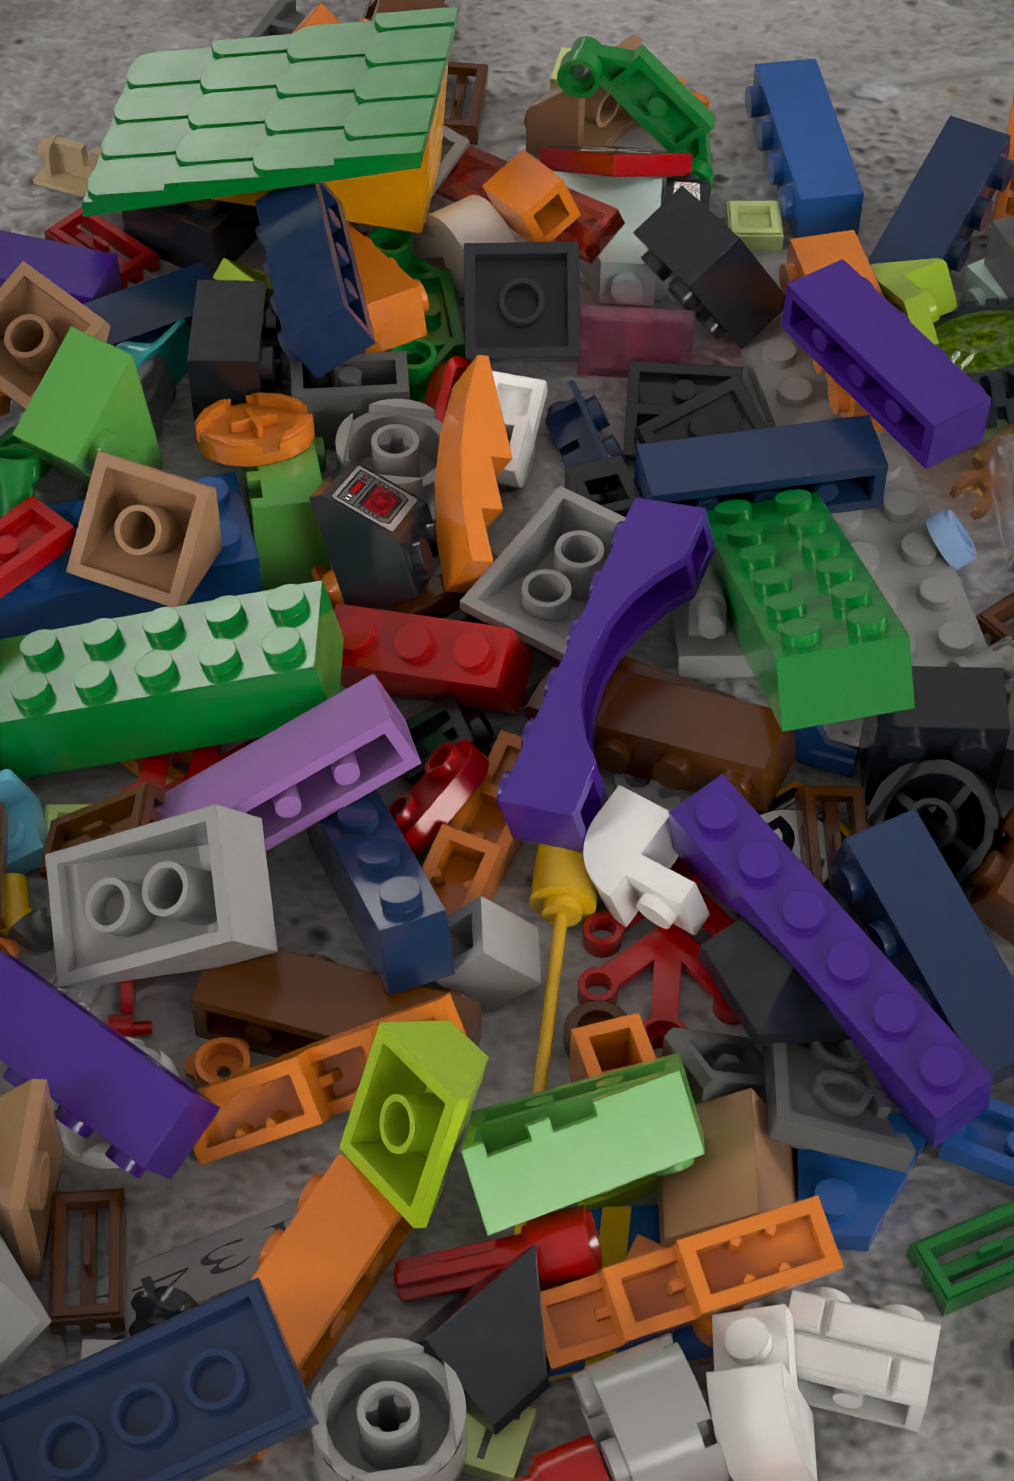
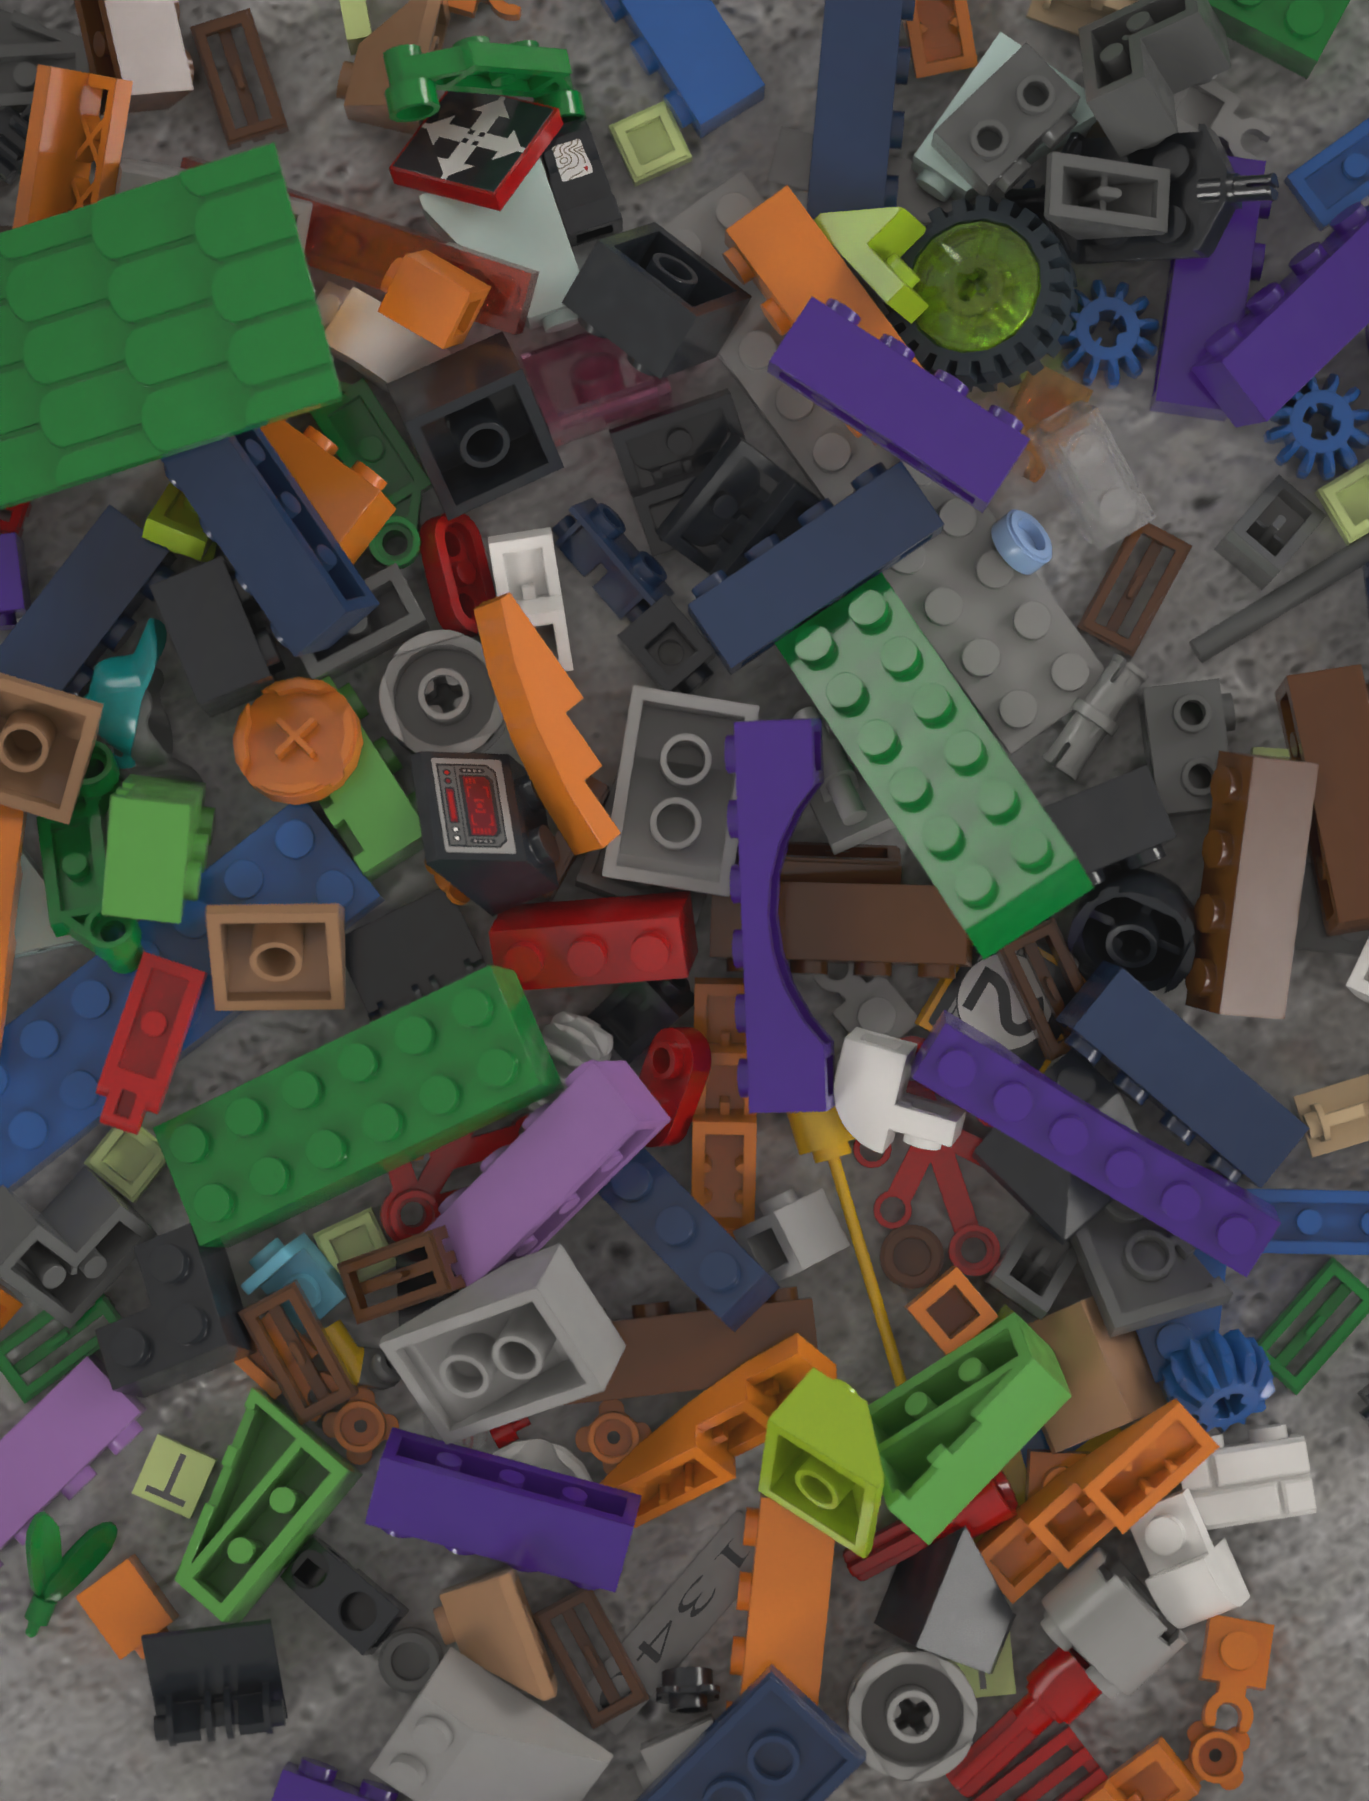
camera: 25 degrees left, 35 degrees up
(890, 1255) = (1220, 1379): none -> blue gear

